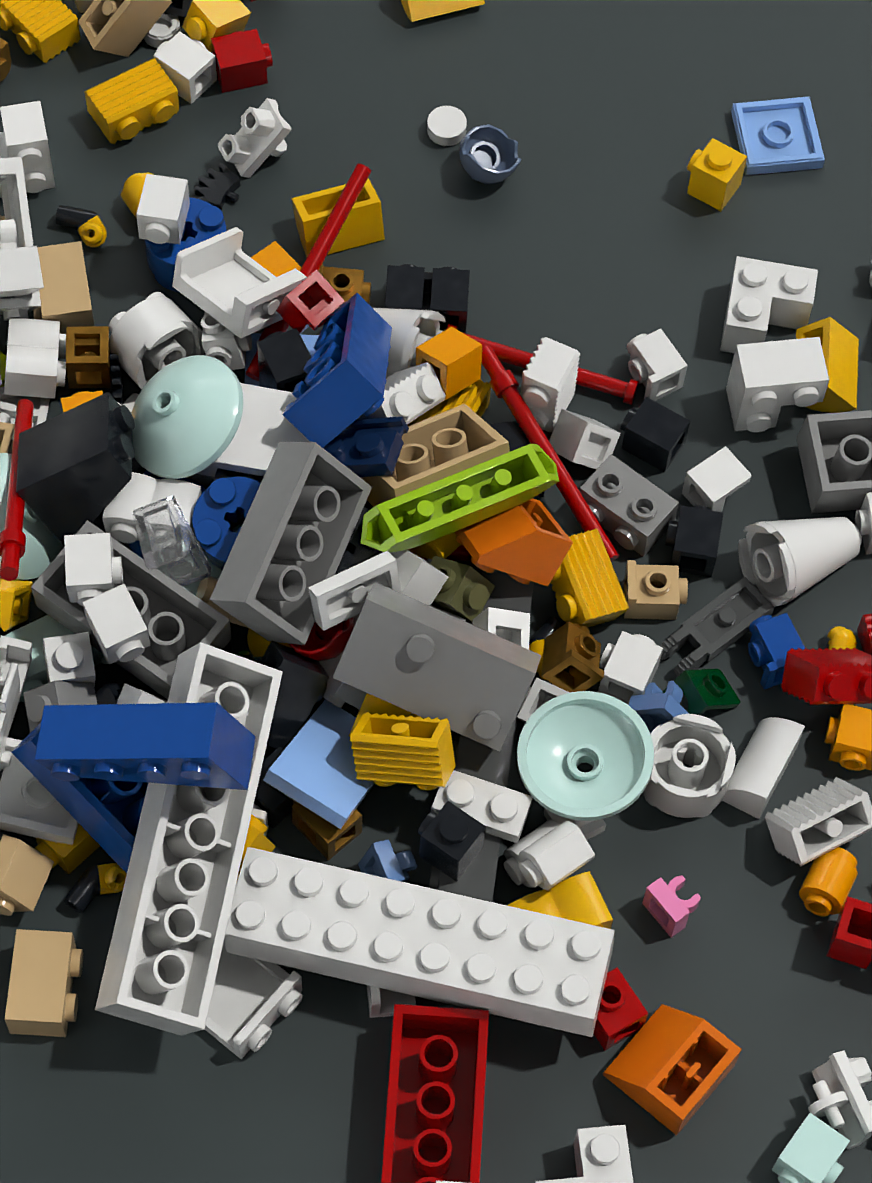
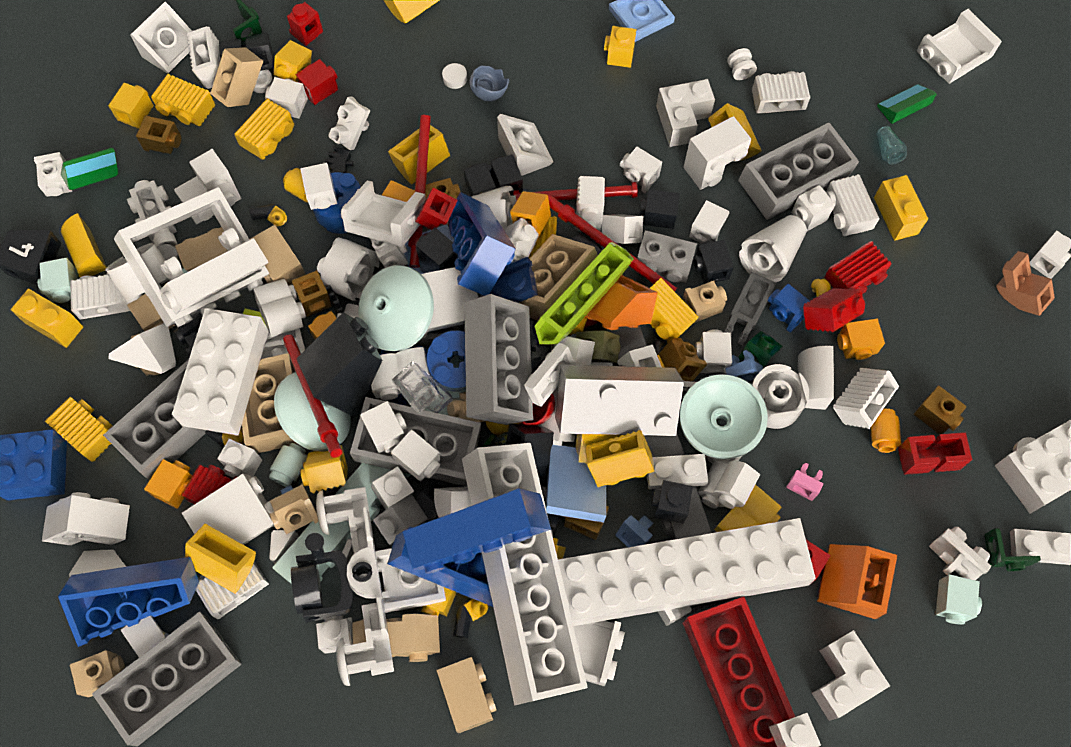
camera: 20 degrees left, 5 degrees up
(498, 263) = (524, 143): none -> white slope

